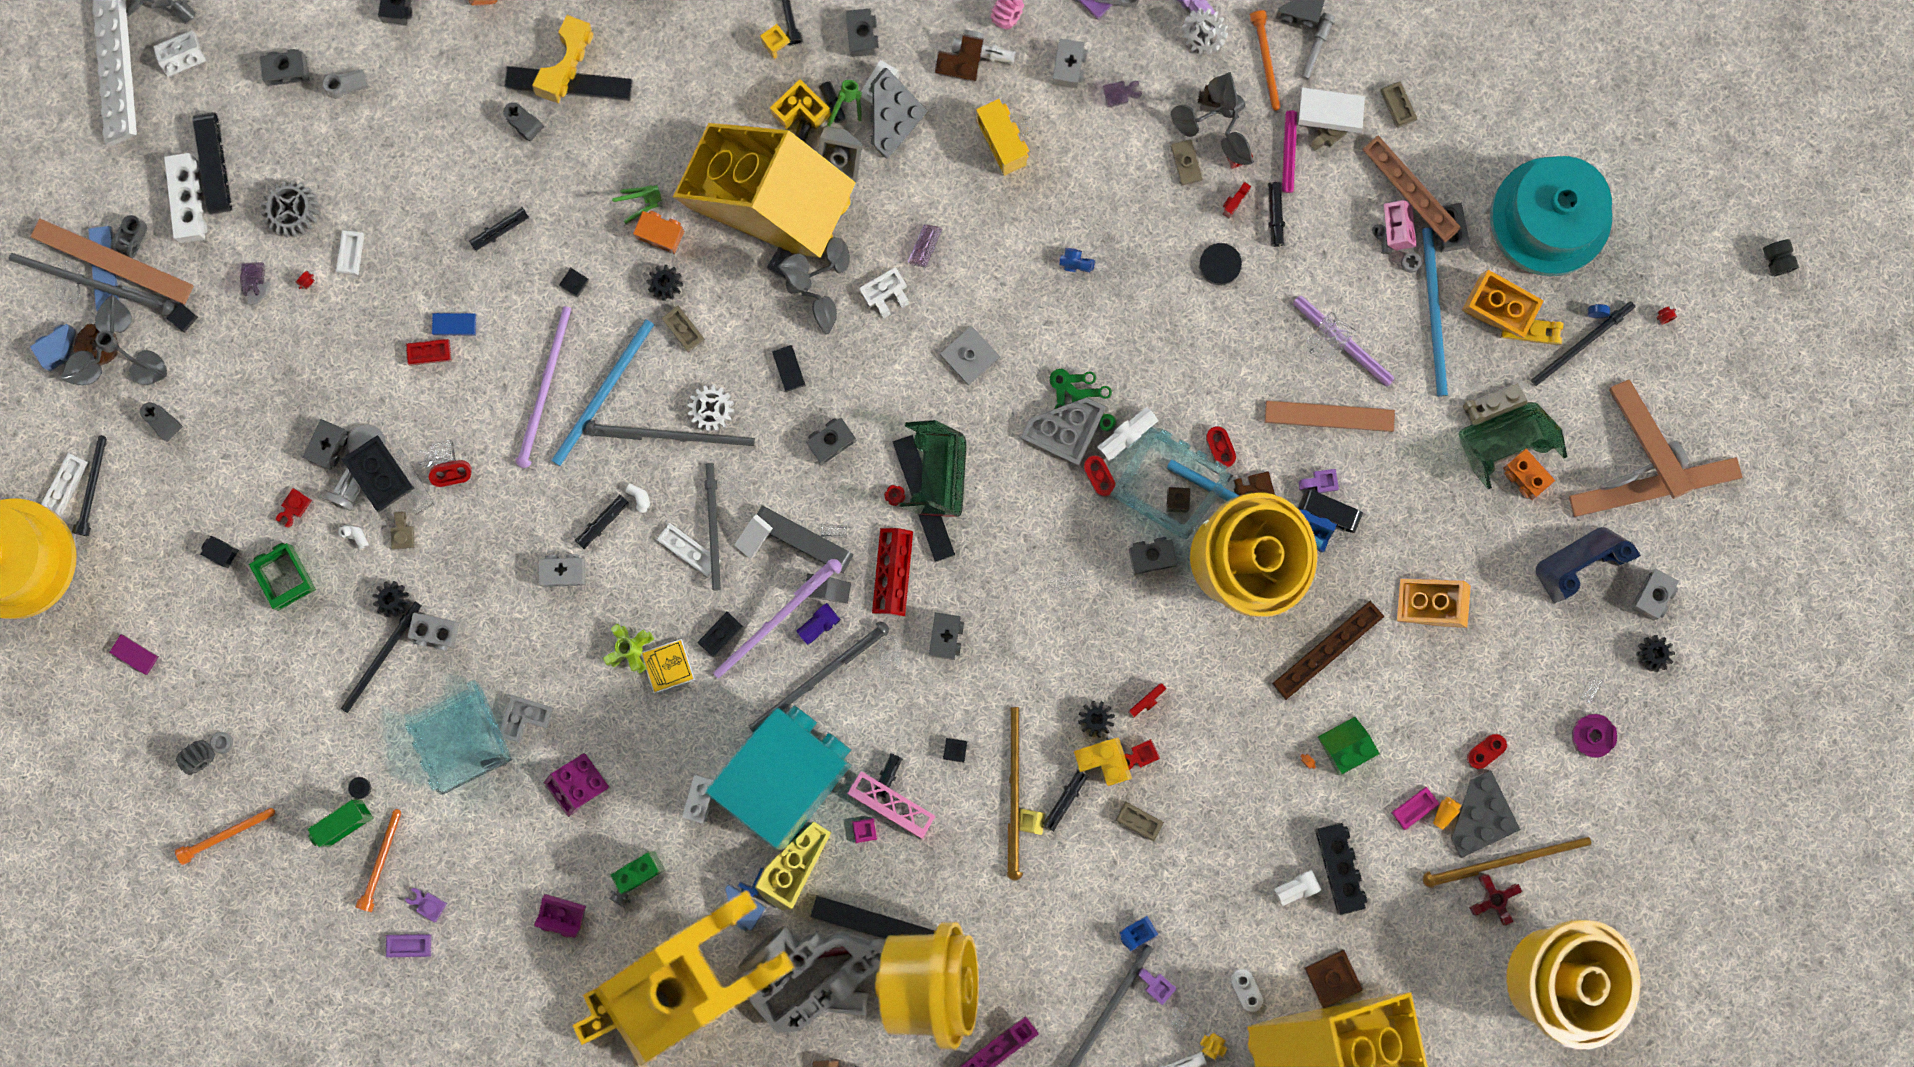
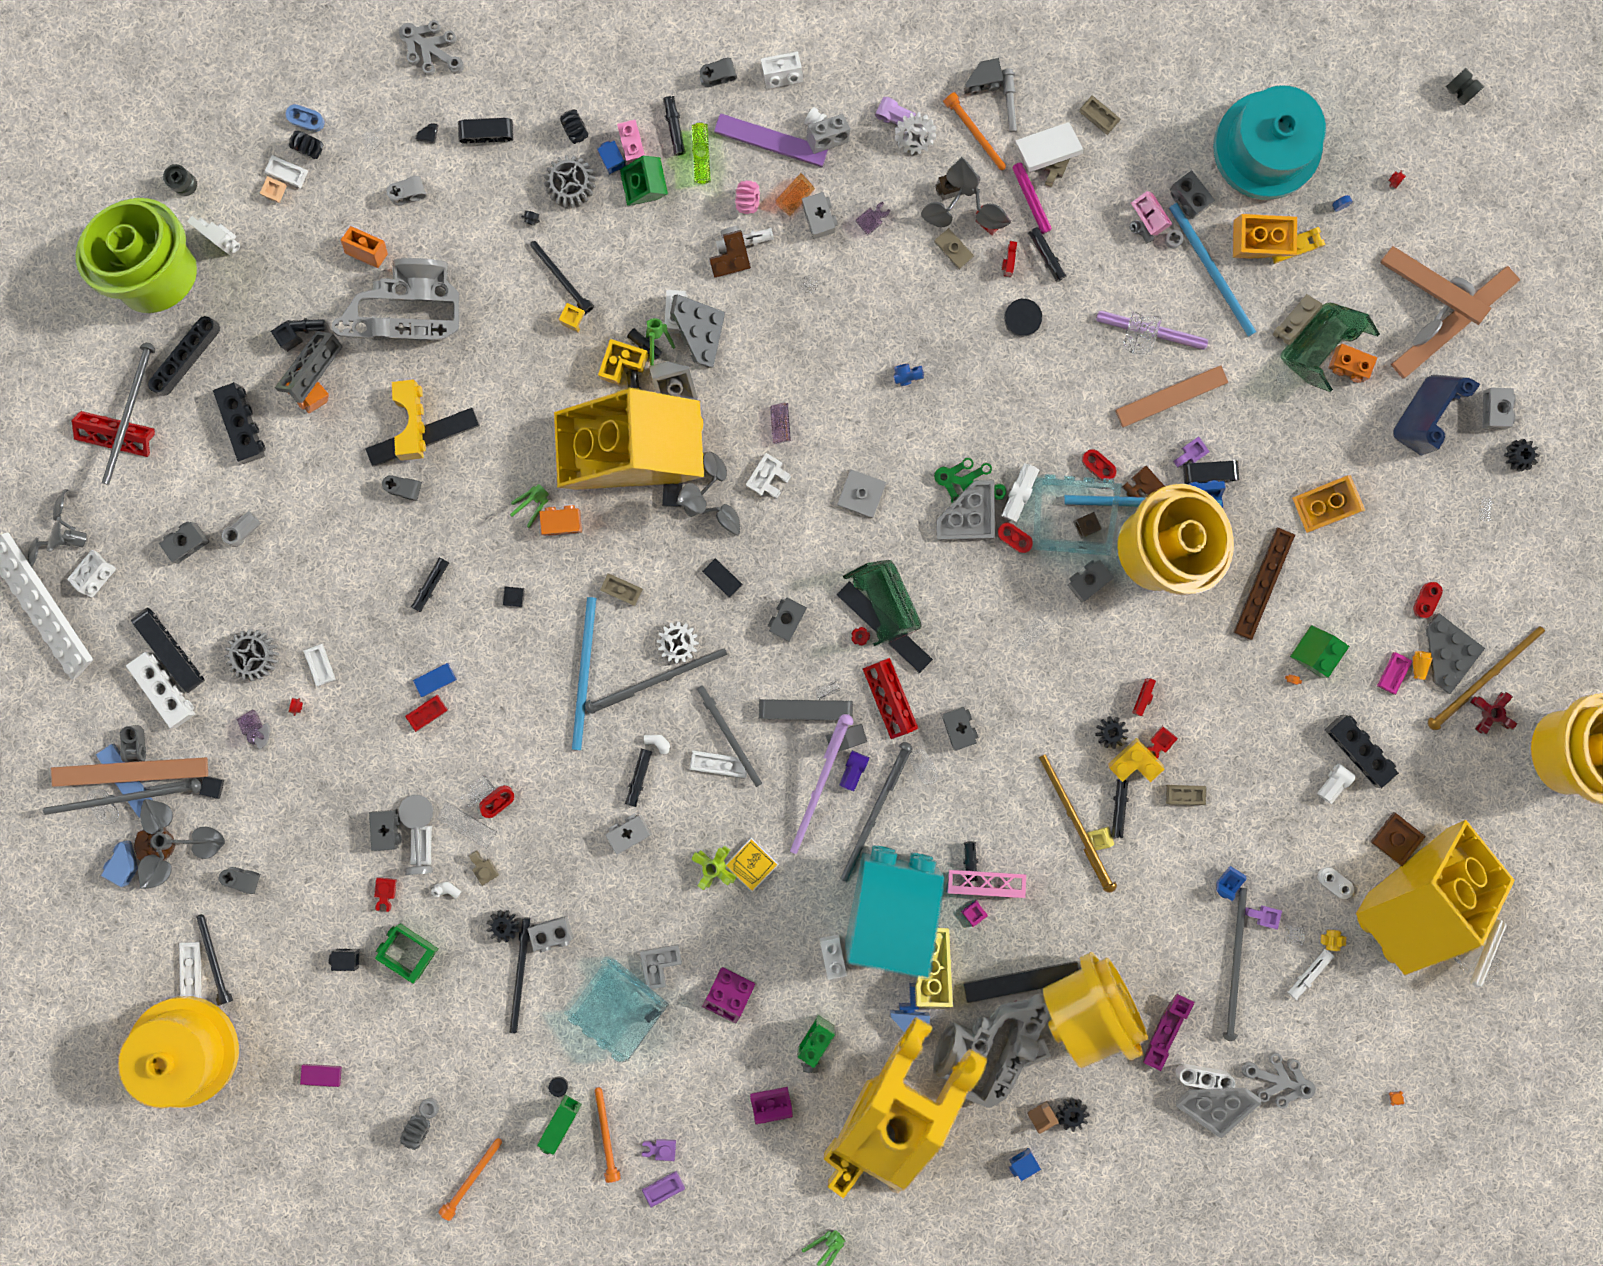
camera: 30 degrees left, 5 degrees up
(377, 473) = (439, 833): black plate -> none
(522, 461) = (540, 722): lavender bar -> none
(656, 286) = (581, 557): black gear -> none
(720, 634) = (780, 818): black plate -> none
(753, 536) = (766, 727): white tile -> none
(857, 21) = (643, 285): dark grey brick -> none
(955, 750) = (1013, 814): black plate -> none
(1002, 136) = (797, 302): yellow brick -> none
(1049, 33) = (793, 194): none -> clear orange slope
(1411, 188) = (1146, 178): nougat tile -> none
(1584, 743) = (1515, 549): magenta plate -> none
(1614, 318) = (1357, 203): black bar -> none

